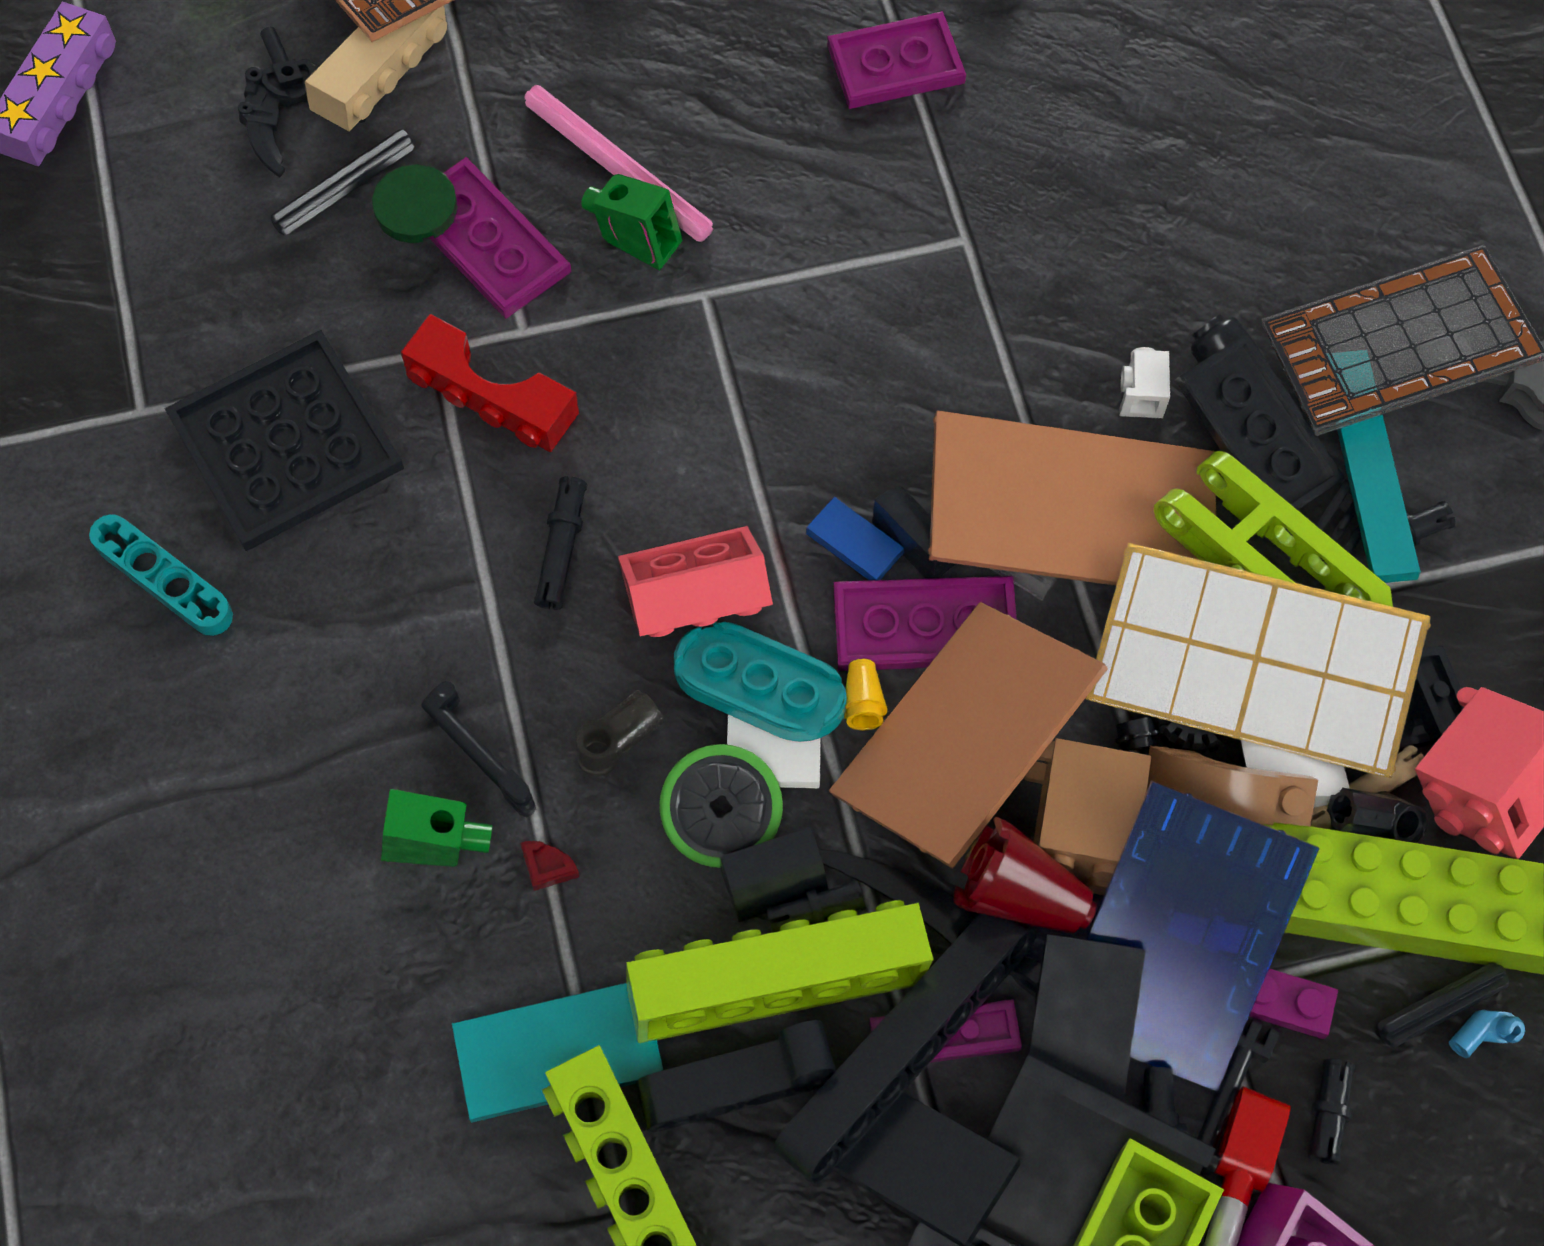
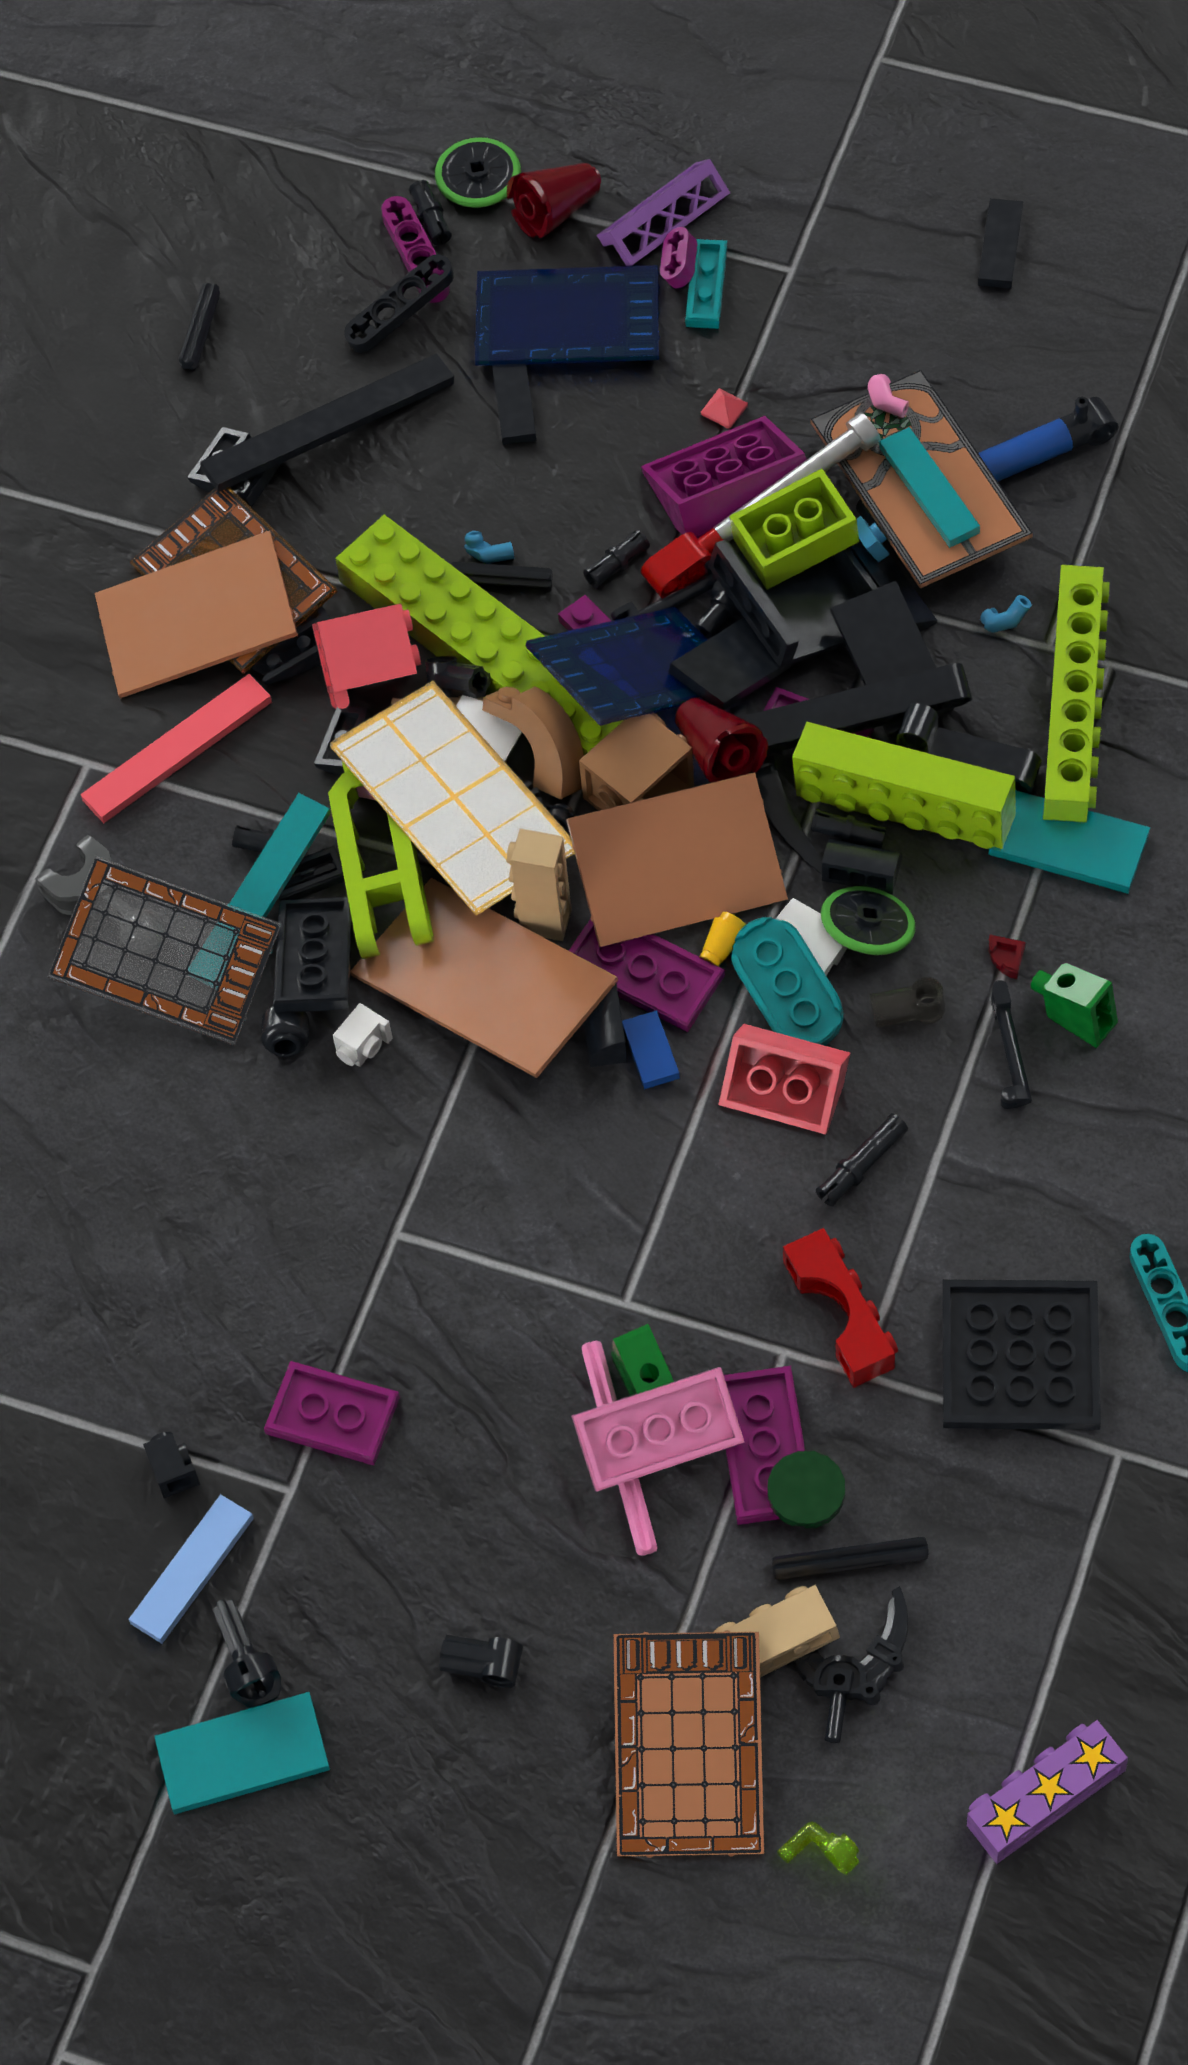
camera: 140 degrees left, 5 degrees down
(581, 166) = (657, 1429): none -> bright pink tile
(1079, 581) = (540, 883): none -> tan brick

